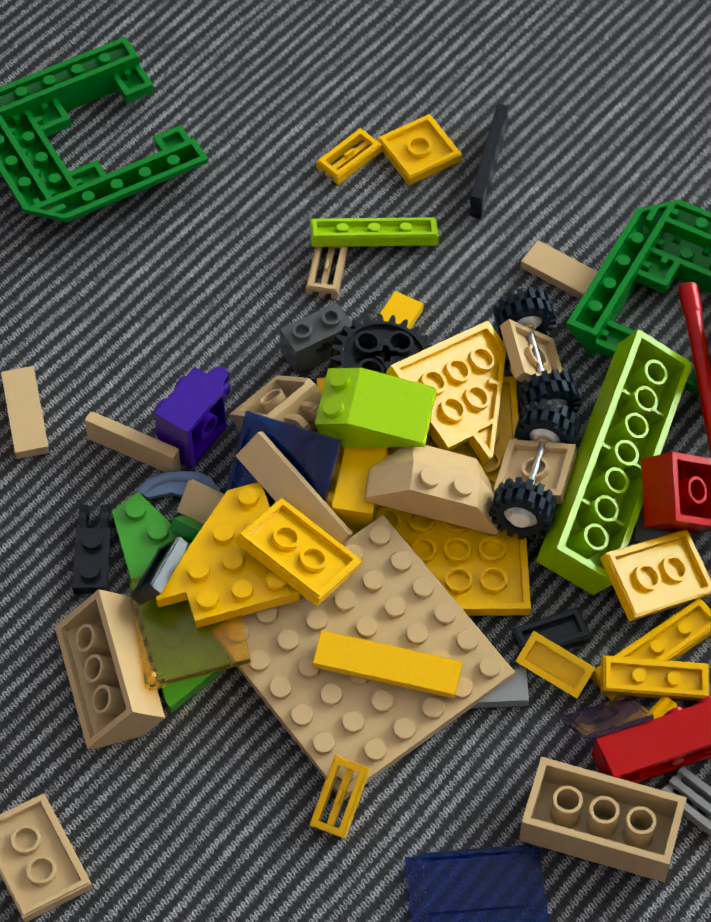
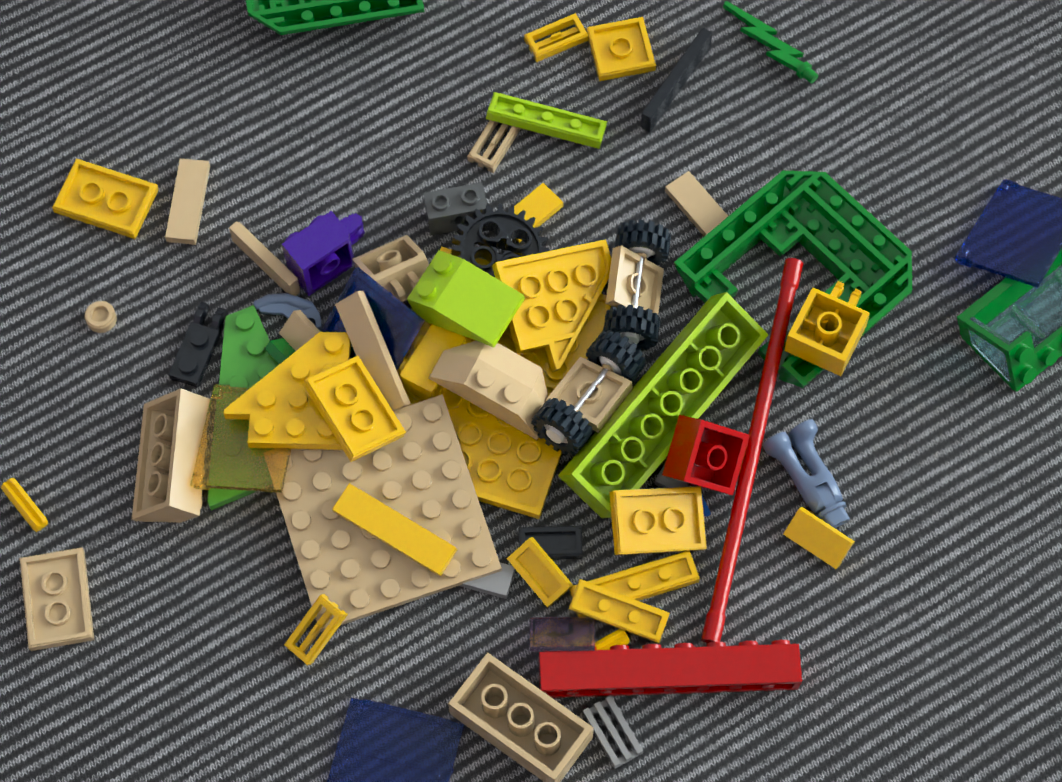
camera: 20 degrees right, 10 degrees up
(159, 570) = (237, 387): tile -> none
(576, 109) = (782, 52): none -> green piece

